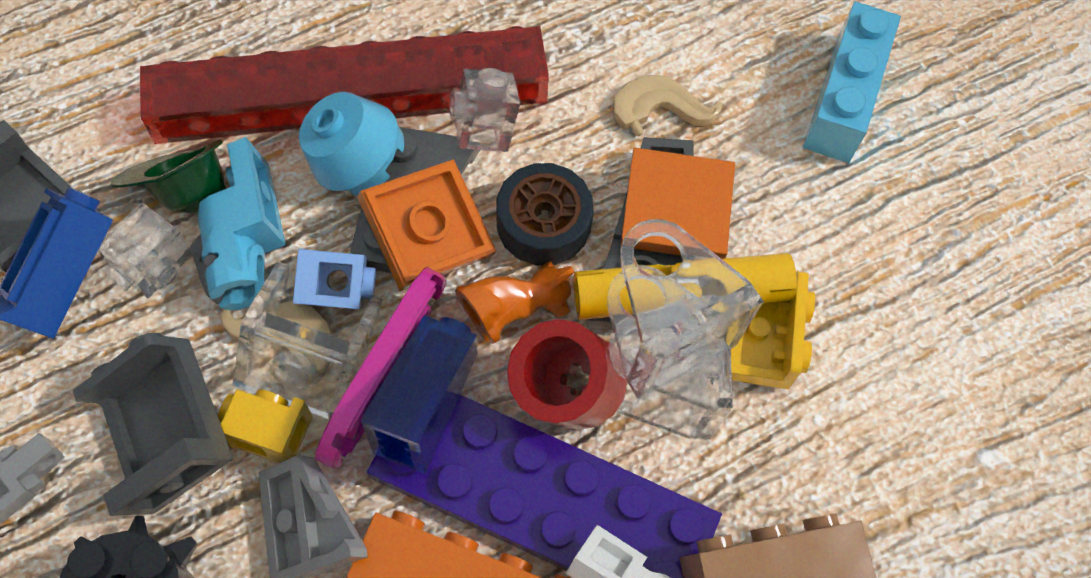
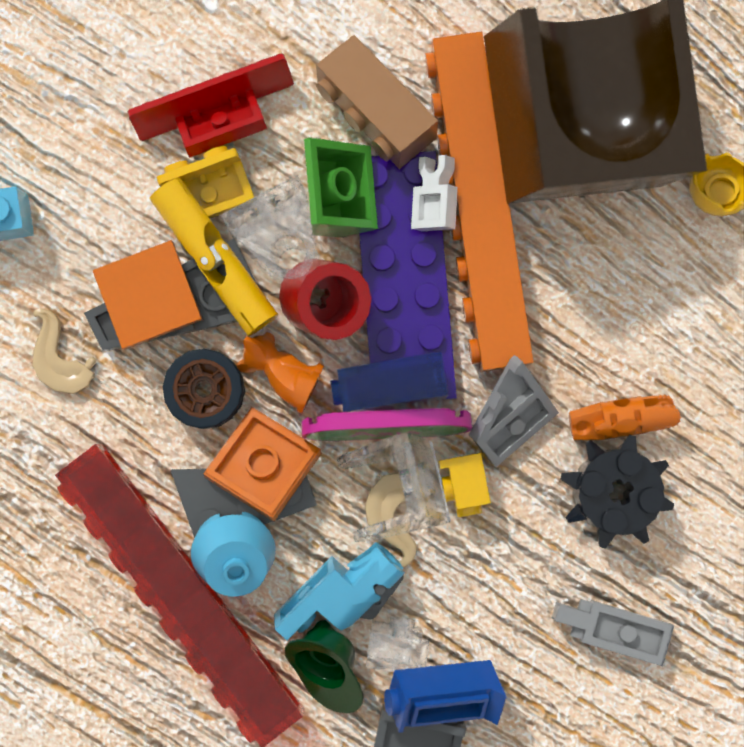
camera: 110 degrees left, 20 degrees up
(157, 421) = (505, 547): dark grey panel -> none
(313, 279) = (355, 501): light blue brick -> none
(485, 109) = (150, 474): clear brick -> none
(677, 316) = (272, 227): clear hose -> none
(695, 460) = (340, 188): none -> bright green slope
(857, 391) = (215, 109): none -> red bracket

